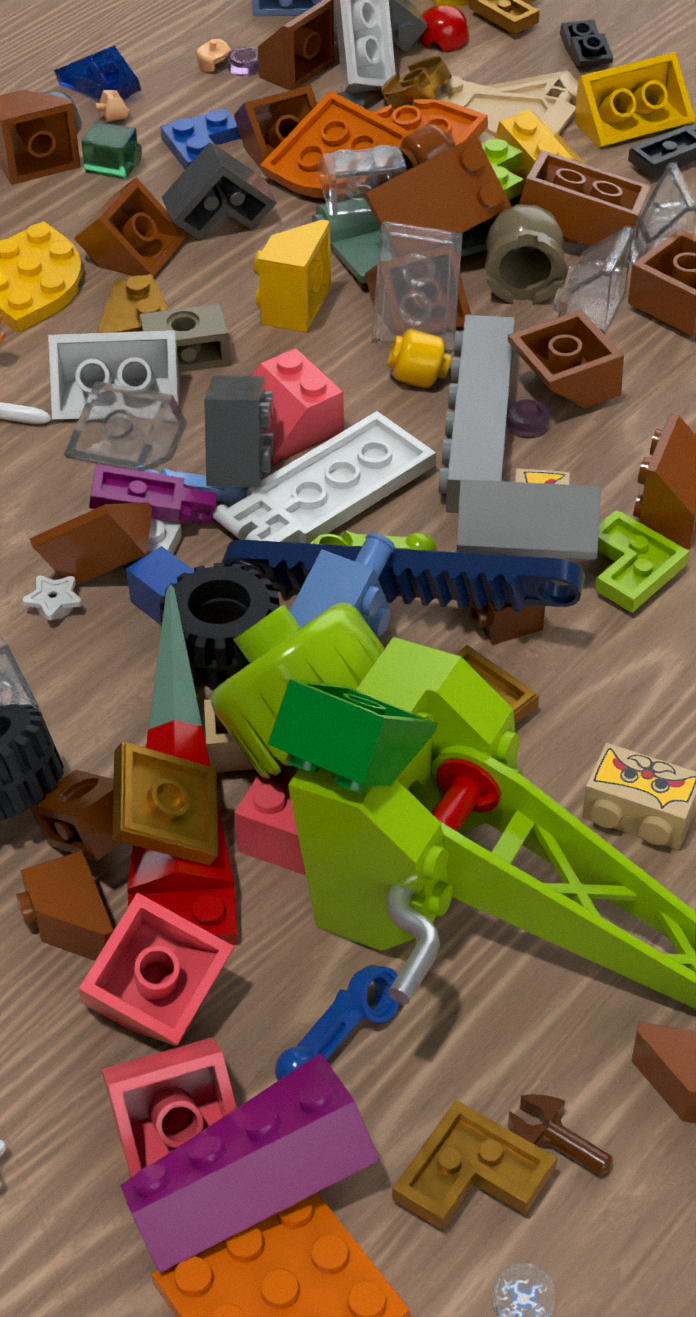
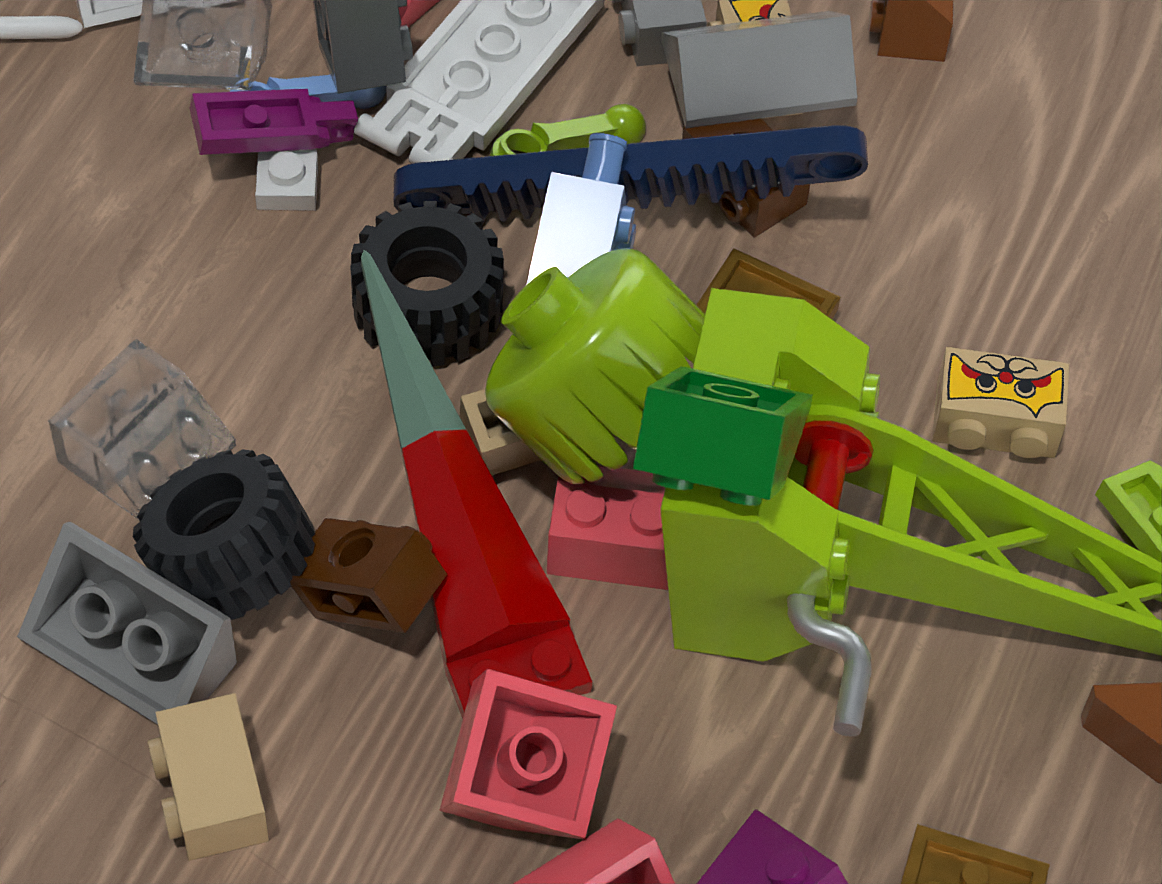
camera: 20 degrees left, 10 degrees up
(55, 607) = (196, 298): white plate -> none
(65, 905) = (383, 697): dark orange slope -> none
(96, 540) = (232, 202): dark orange slope -> none
(151, 577) = (322, 241): blue brick -> none
(165, 803) = (471, 545): pearl gold plate -> none
(341, 1017) = (775, 724): blue piece -> none
(554, 1134) = (1032, 835): reddish brown bar -> none
(641, 560) = (902, 92): lime plate -> none

